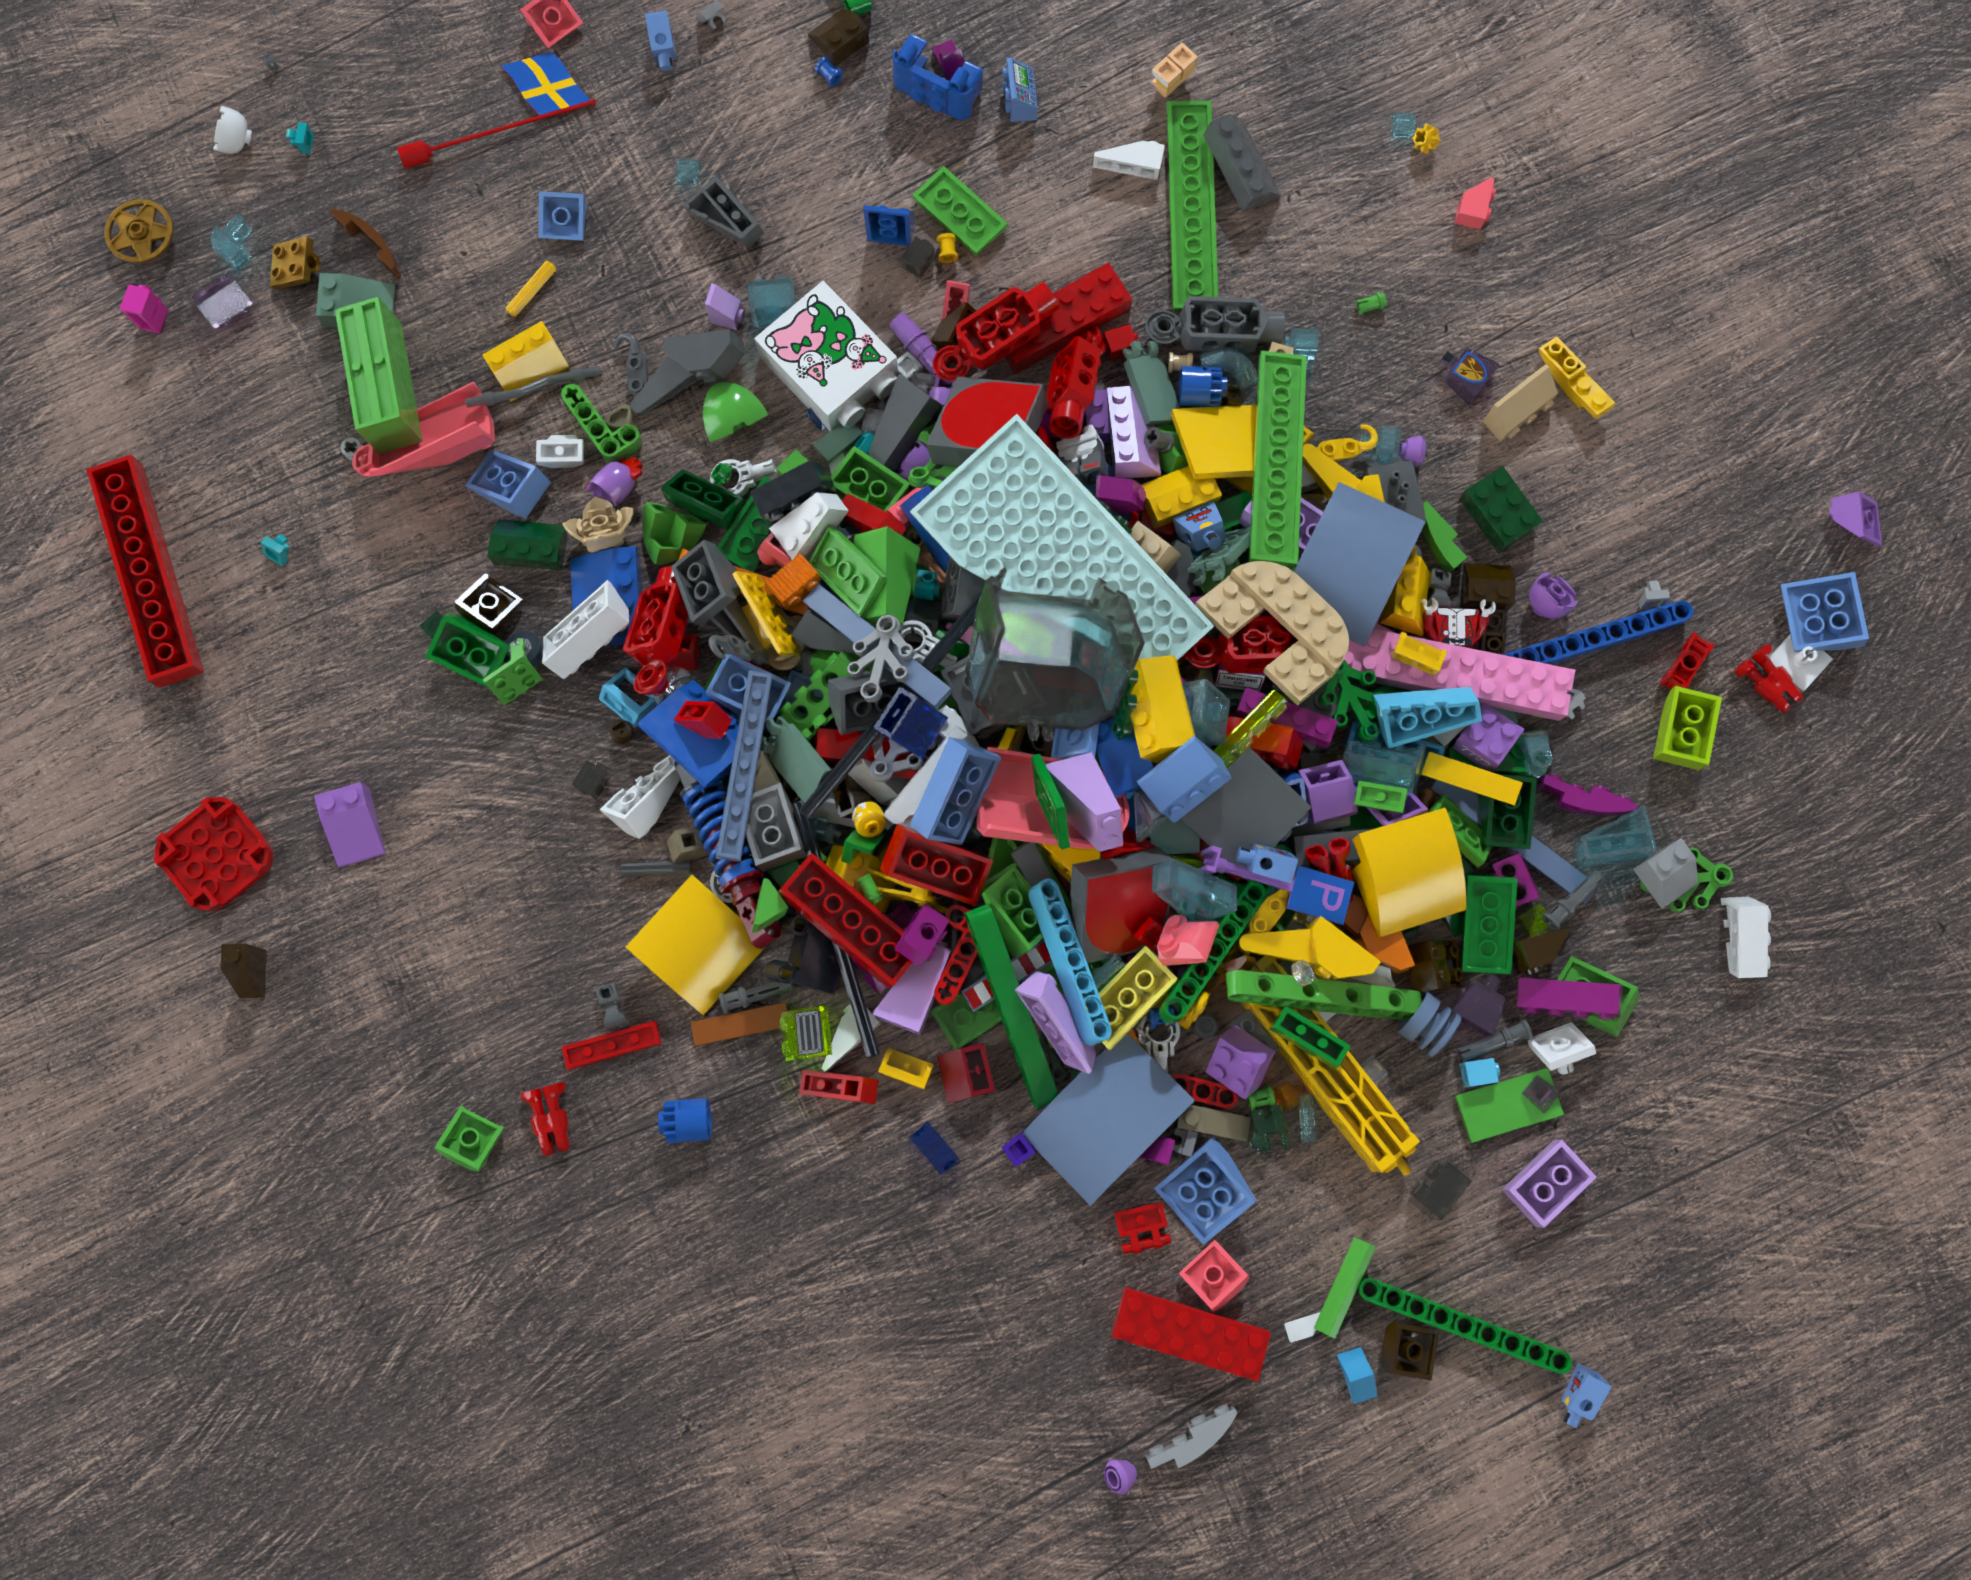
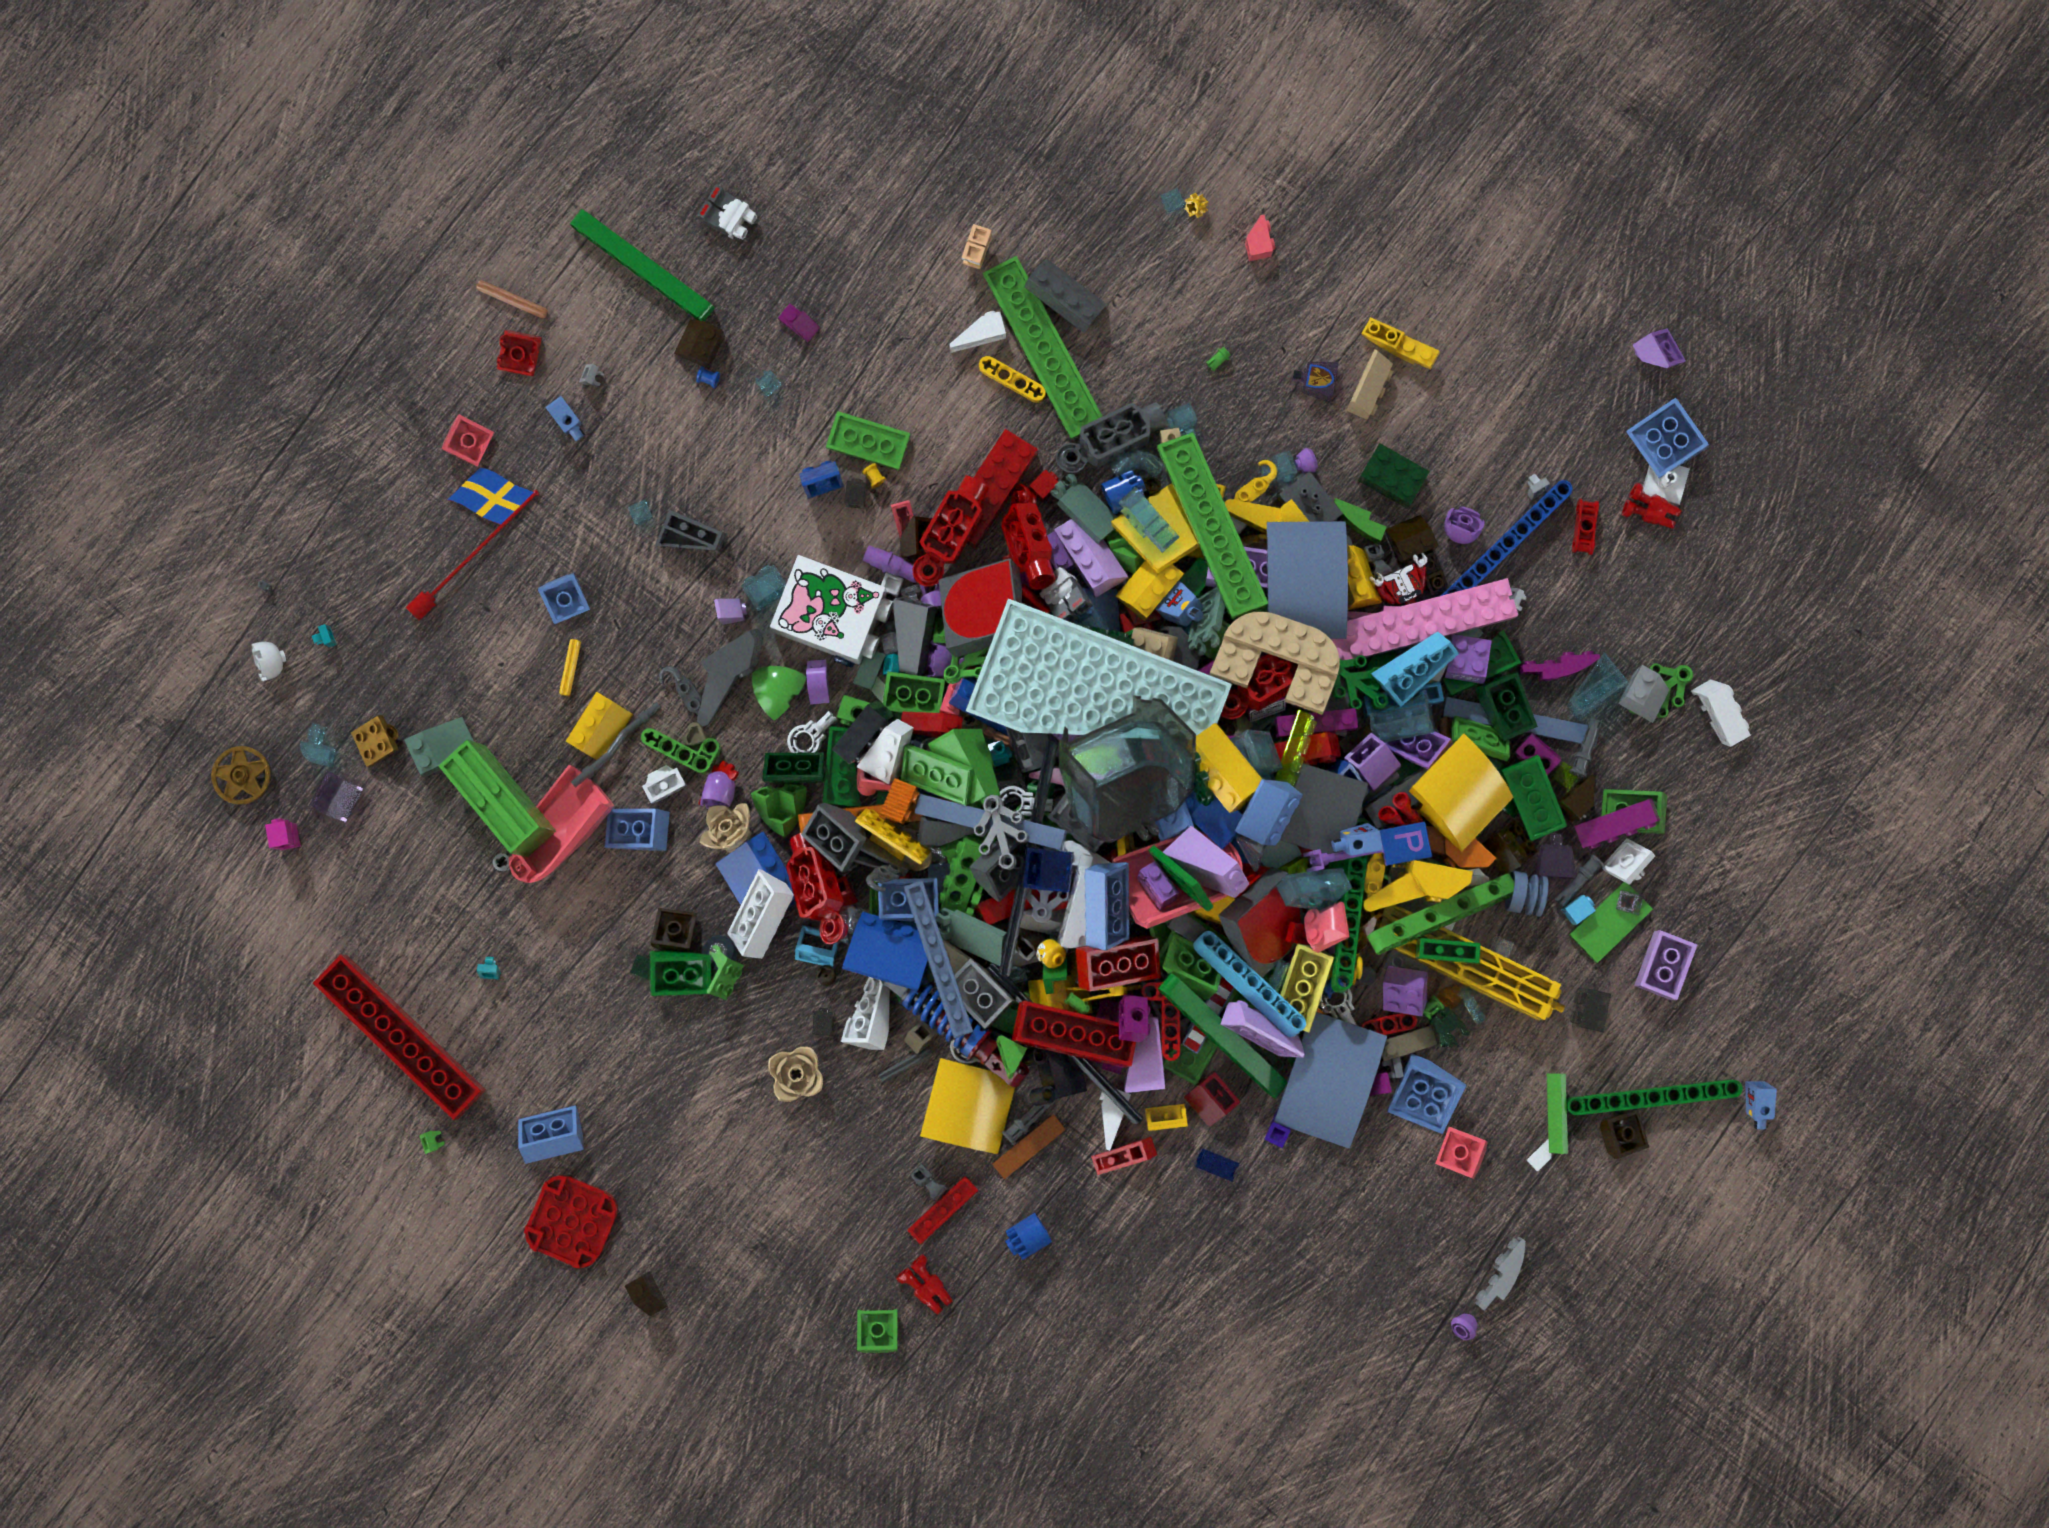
camera: 25 degrees left, 5 degrees up
(114, 694) = (429, 1143): none -> bright green tile
(242, 751) = (550, 1134): none -> medium blue slope
(350, 824) = (662, 1147): medium lavender slope -> none
(352, 224) = (403, 685): reddish brown slope -> none
(521, 804) = (781, 1067): none -> tan brick
(527, 544) = (678, 868): dark green slope -> none
(704, 719) = (890, 940): red slope -> none
(721, 474) = (797, 742): green plate -> none
(775, 425) = (817, 682): none -> medium lavender brick
(806, 1033) = (1082, 1130): slope -> none
(887, 106) = (768, 383): none -> clear light blue tile
(923, 86) = (787, 355): blue container -> none
(1019, 91) = (866, 321): medium blue slope -> none
(1022, 800) = (1157, 885): none -> medium lavender brick
(1120, 494) = (1108, 611): magenta slope -> none
(1139, 1220) = (1389, 1140): red plate -> none
(1142, 222) = (1013, 377): none -> yellow beam
(1162, 441) = (1117, 551): dark grey bush -> none
(1176, 361) = (1097, 478): tan bush -> none
(1191, 1333) = (1464, 1202): red brick -> none
(1211, 421) = (1147, 520): none -> clear light blue wedge
(1303, 973) = (1421, 908): clear tile -> none
(1357, 1375) = (1595, 1170): dark azure slope -> none
(1381, 797) = (1413, 747): bright green panel -> none
(1418, 654) = (1389, 625): yellow hinge -> none
(1471, 778) = (1471, 697): yellow tile -> none
(1535, 751) = (1504, 648): clear light blue piece -> none
(1687, 728) = (1608, 577): lime brick -> none

